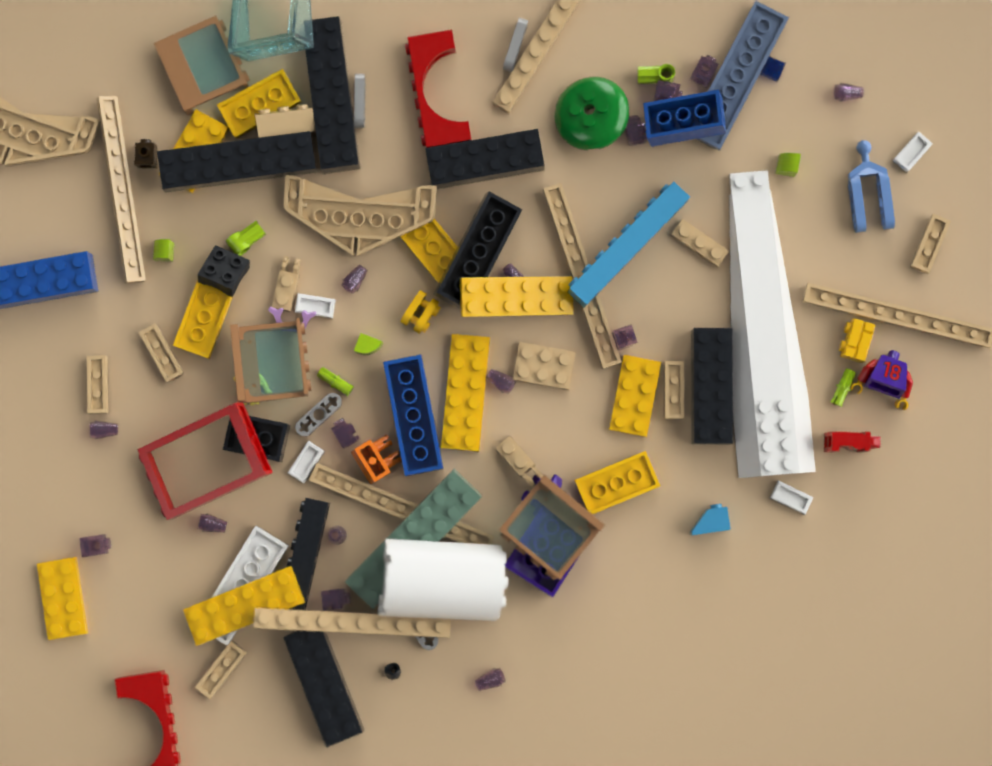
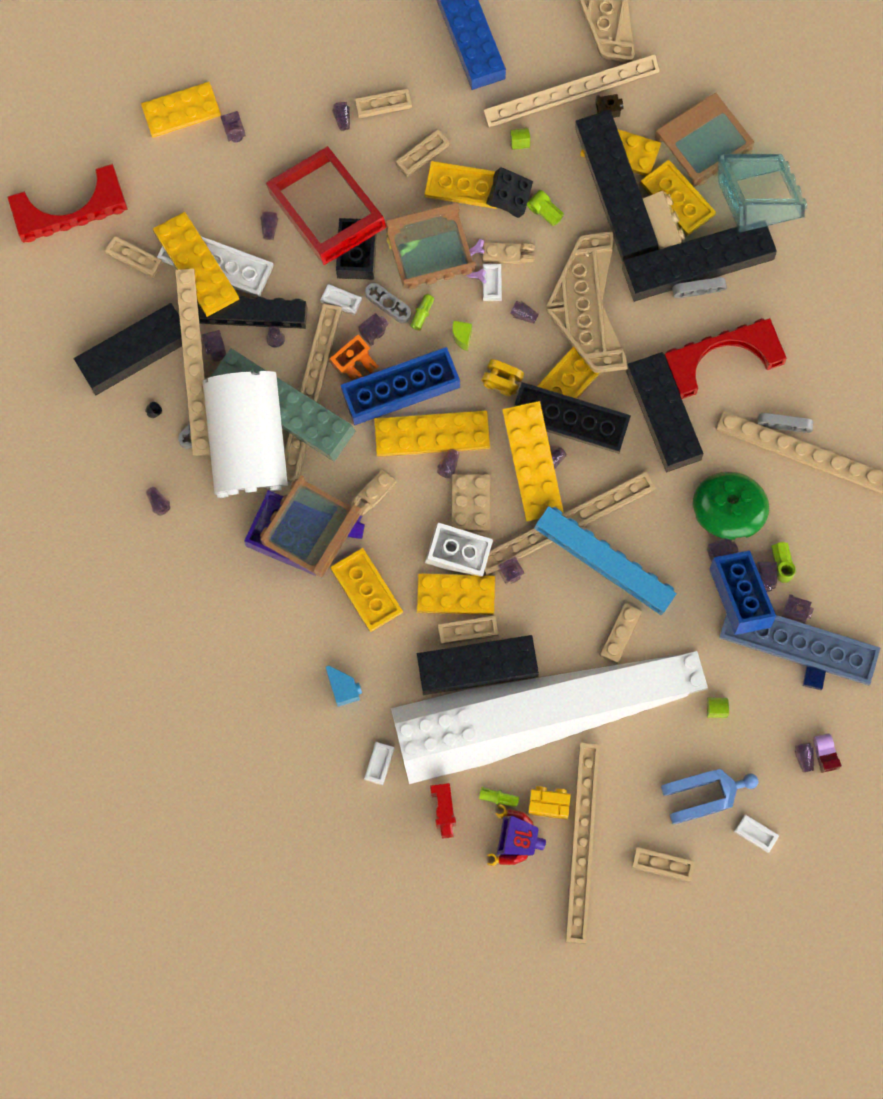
camera: 80 degrees right, 10 degrees down
(594, 385) = (458, 550): none -> white slope
(848, 71) = (826, 753): none -> leg

